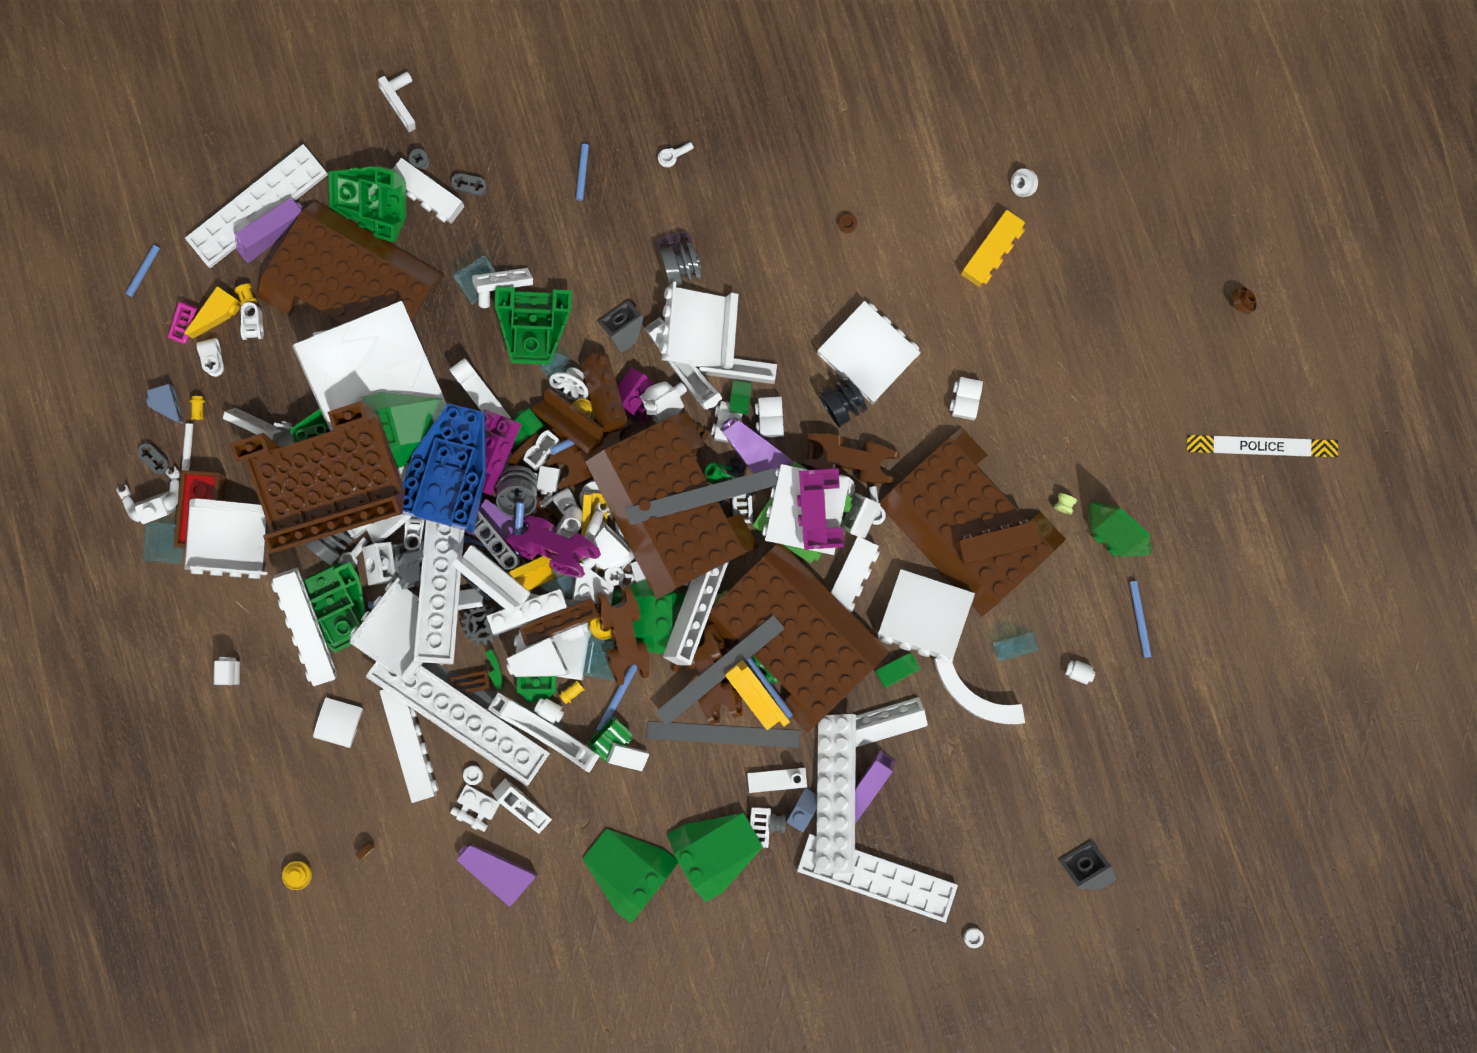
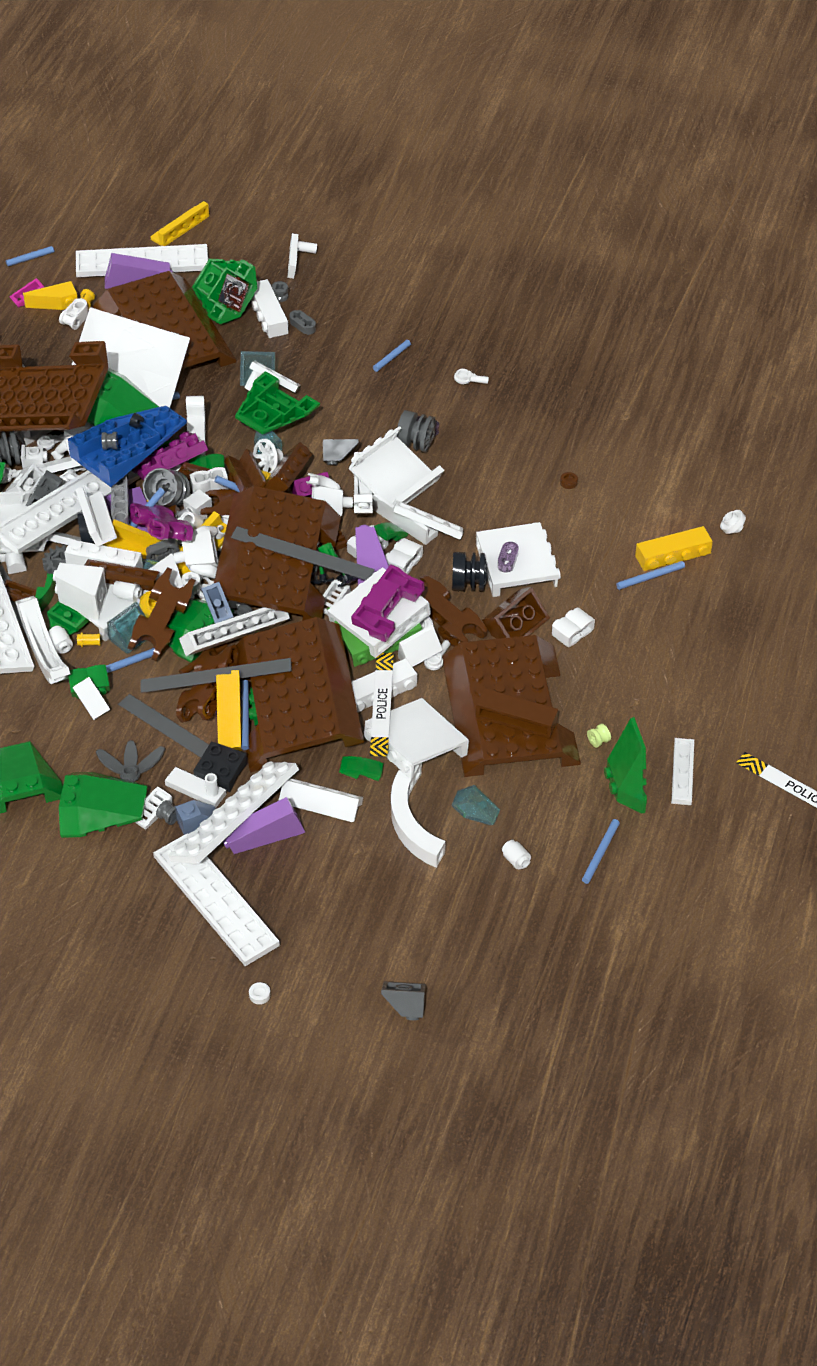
camera: 30 degrees right, 35 degrees down
(209, 354) = (27, 319): white piece -> none
(253, 131) = (181, 224): none -> yellow panel
(388, 203) = (233, 292): none -> piece
(435, 485) = (109, 440): none -> dark grey wheel
(442, 446) = (135, 421): none -> black hinge
(675, 606) = (217, 603): none -> sand blue slope
(710, 797) = (130, 770): none -> dark grey plant
(766, 365) = (428, 519): none -> white tile
(784, 748) = (223, 762): none -> black brick
(871, 363) = (510, 557): none -> clear purple beam
(880, 607) = (381, 705): none -> sticker
(913, 420) = (517, 615): none -> reddish brown slope
(989, 291) = (649, 575): none -> medium blue bar
(1152, 491) = (682, 771): none -> white tile

